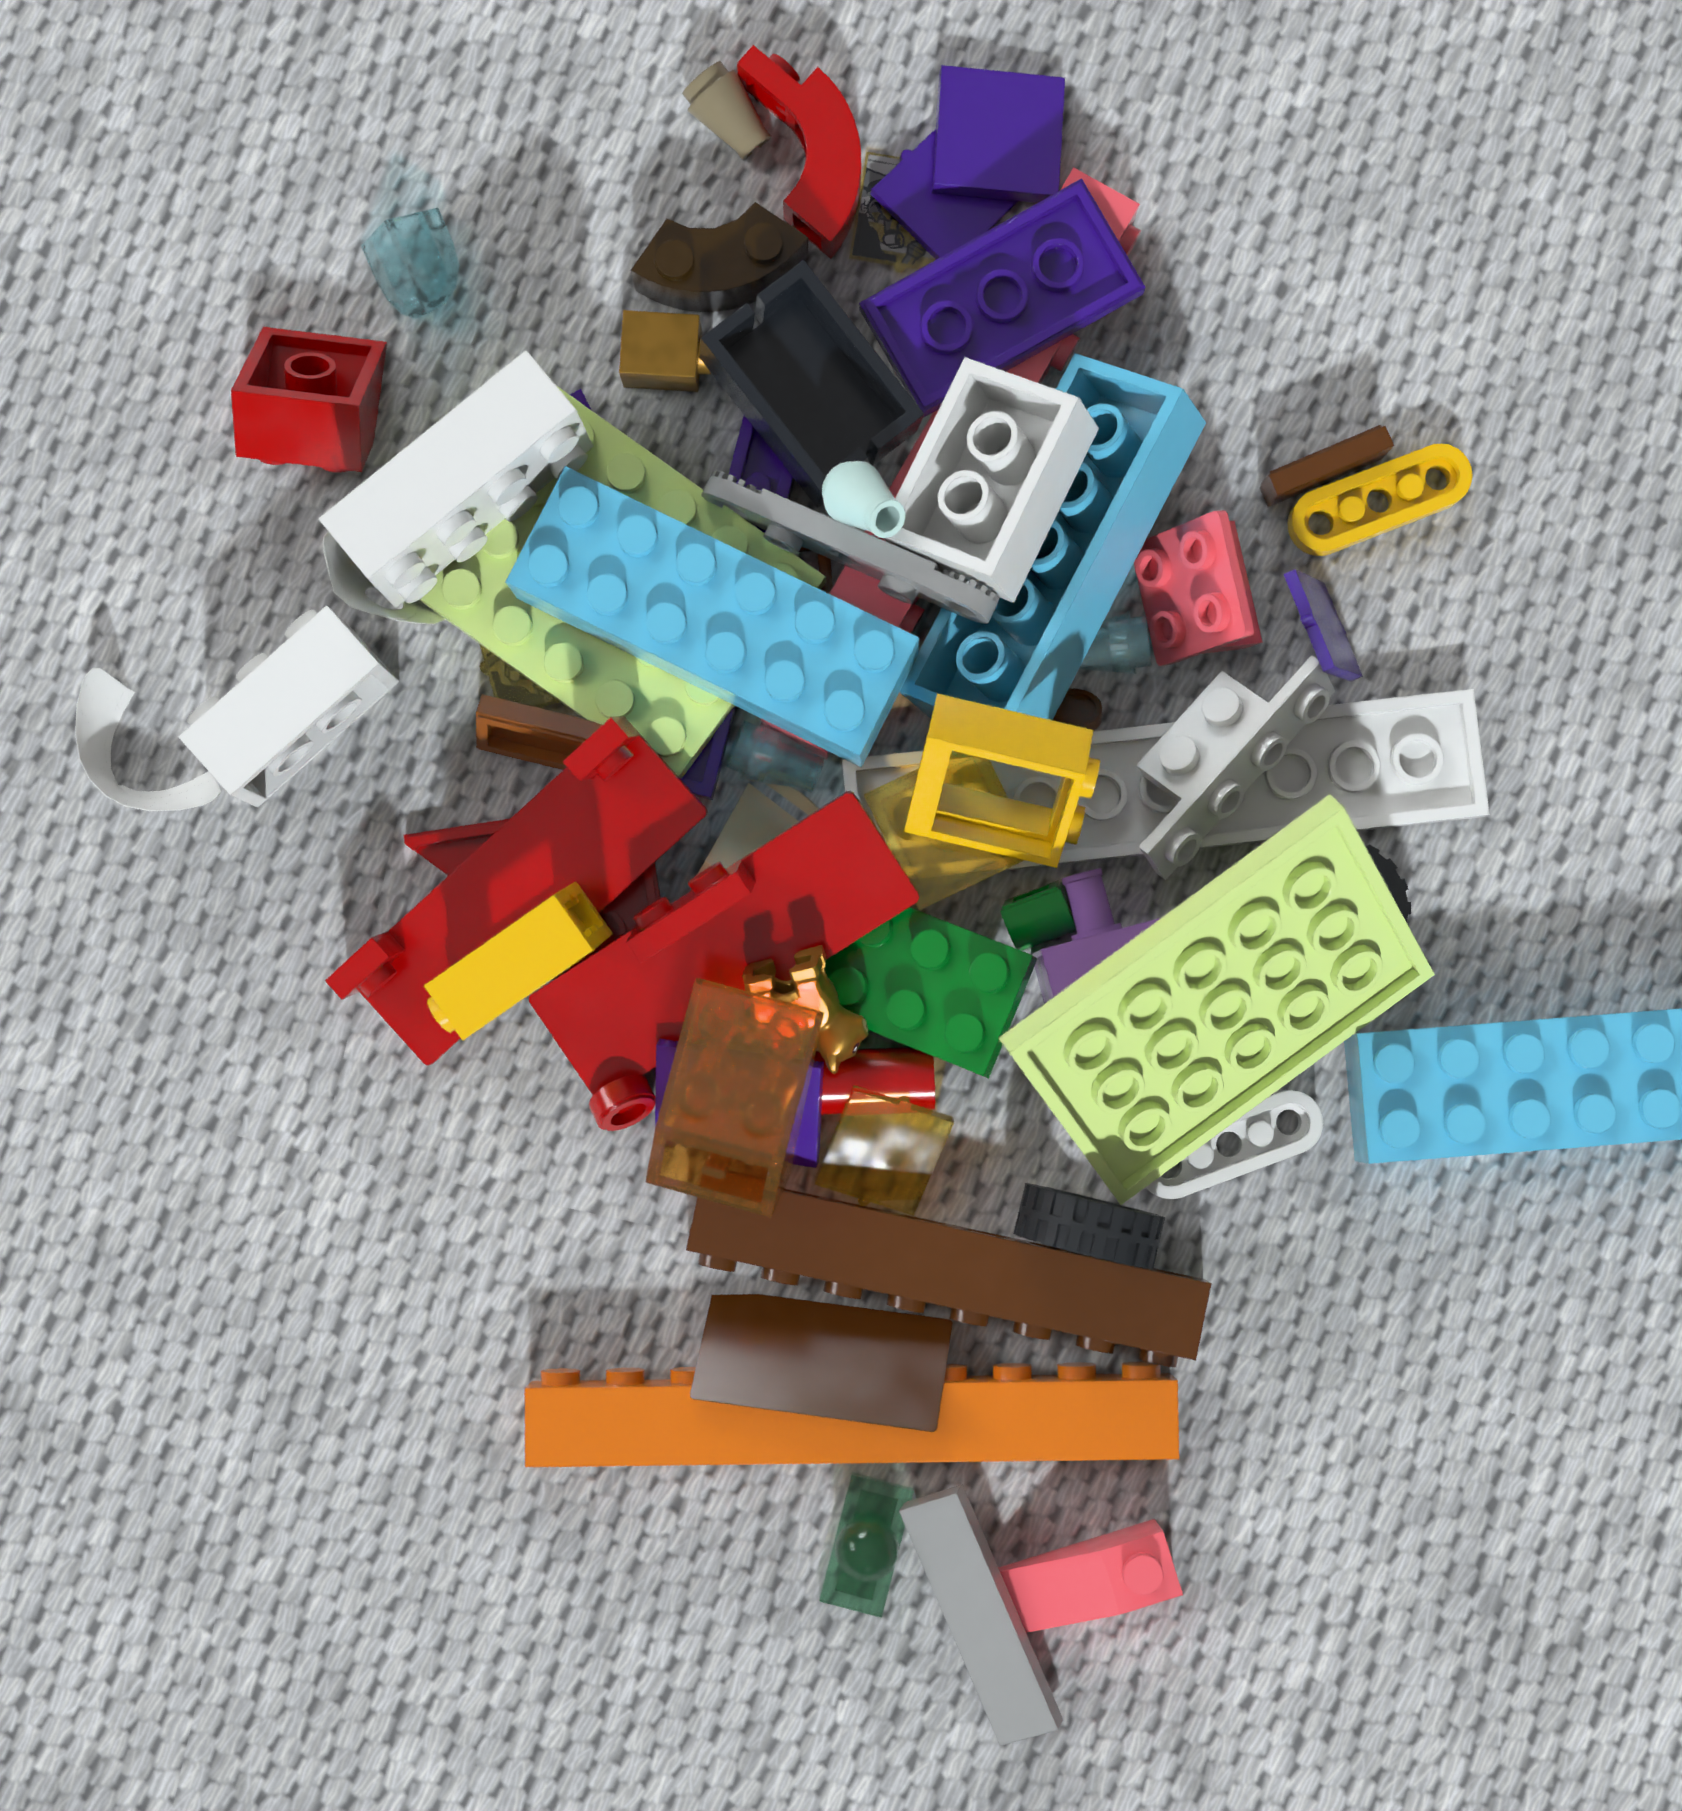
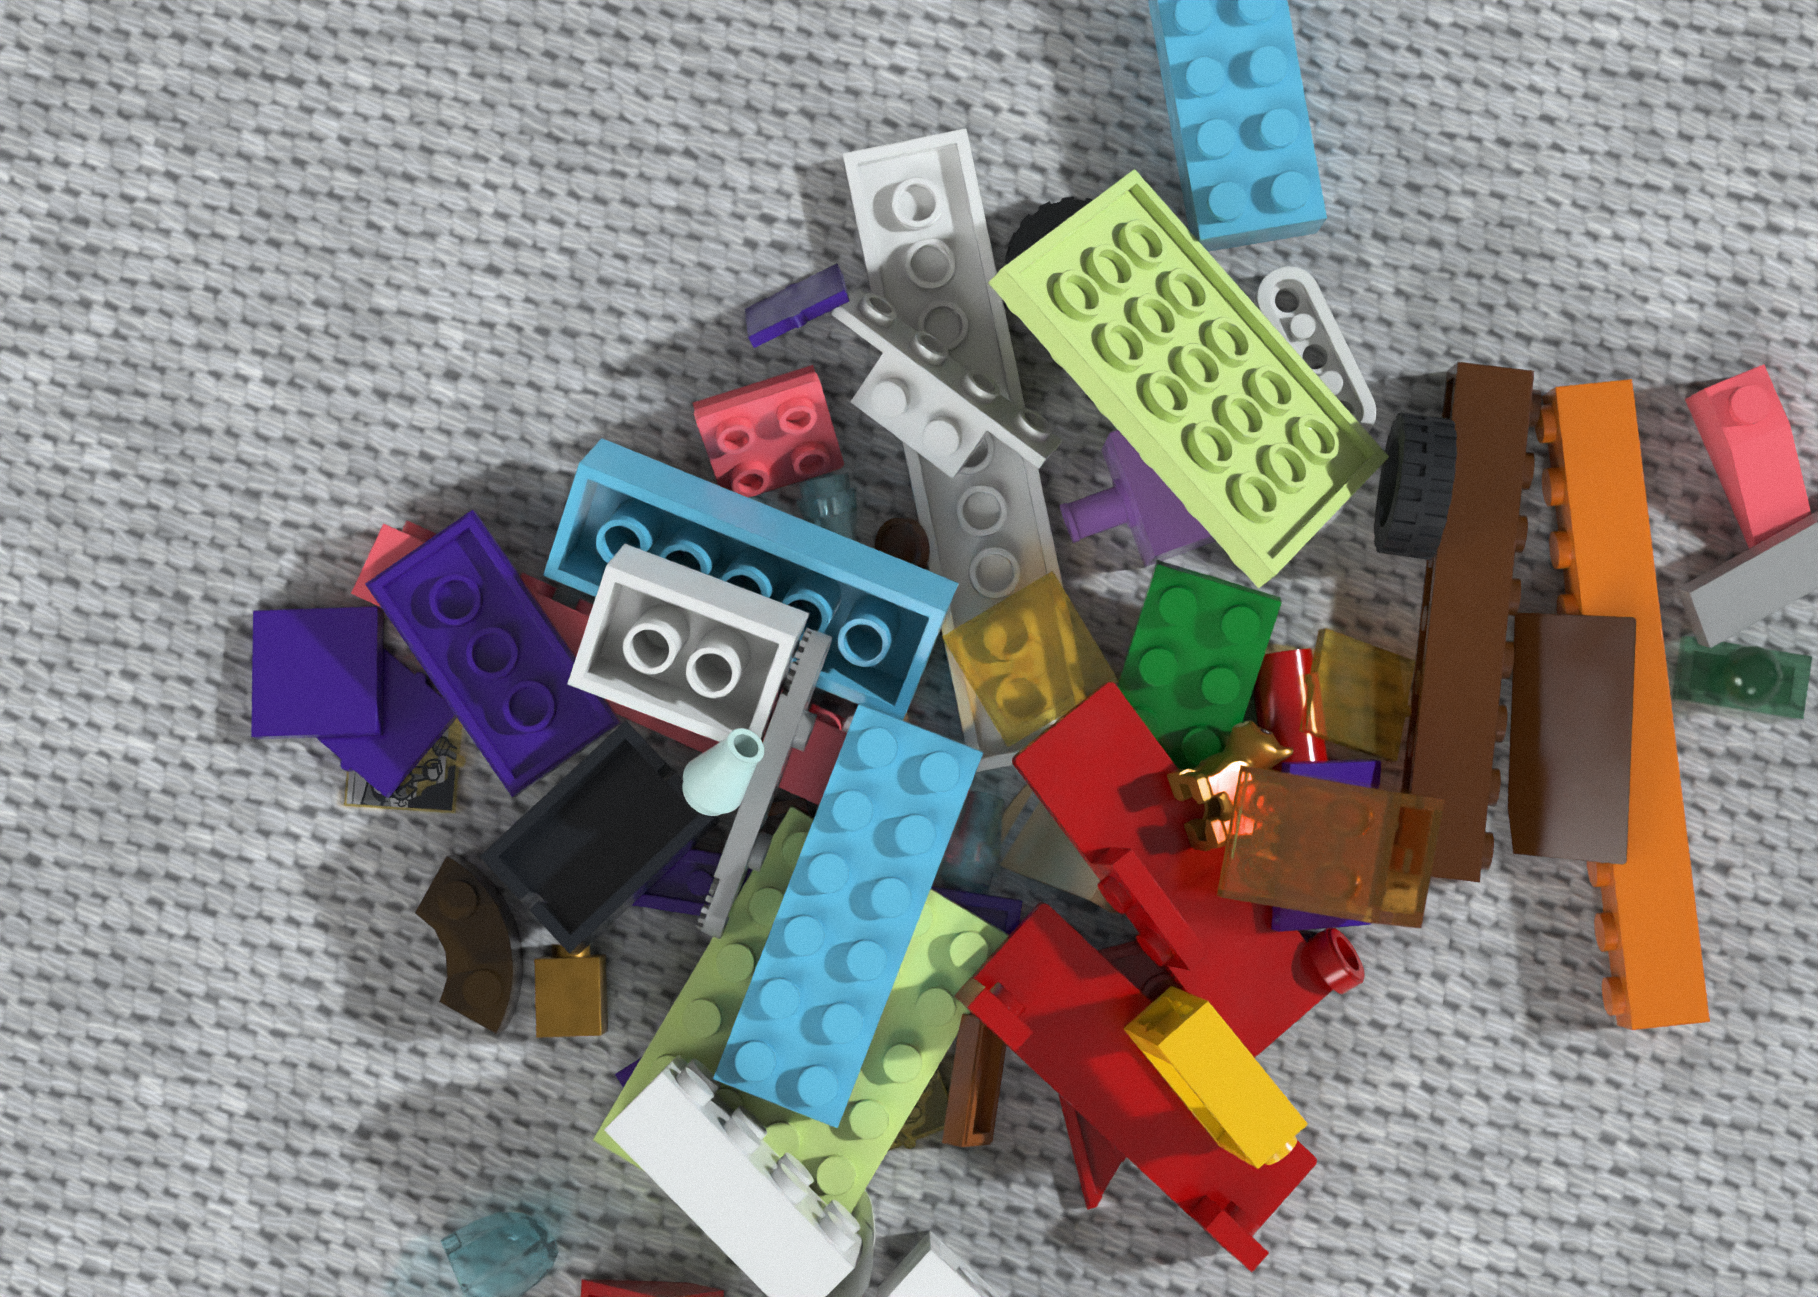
camera: 90 degrees left, 0 degrees up
(725, 108) = (314, 952): dark tan cone -> none
(818, 114) = (373, 837): red arch -> none
(991, 820) = (1026, 611): yellow window -> none
(1038, 916) = (1108, 564): green brick -> none
(1326, 465) = (630, 316): reddish brown tile -> none
(1399, 480) = (652, 233): yellow plate -> none

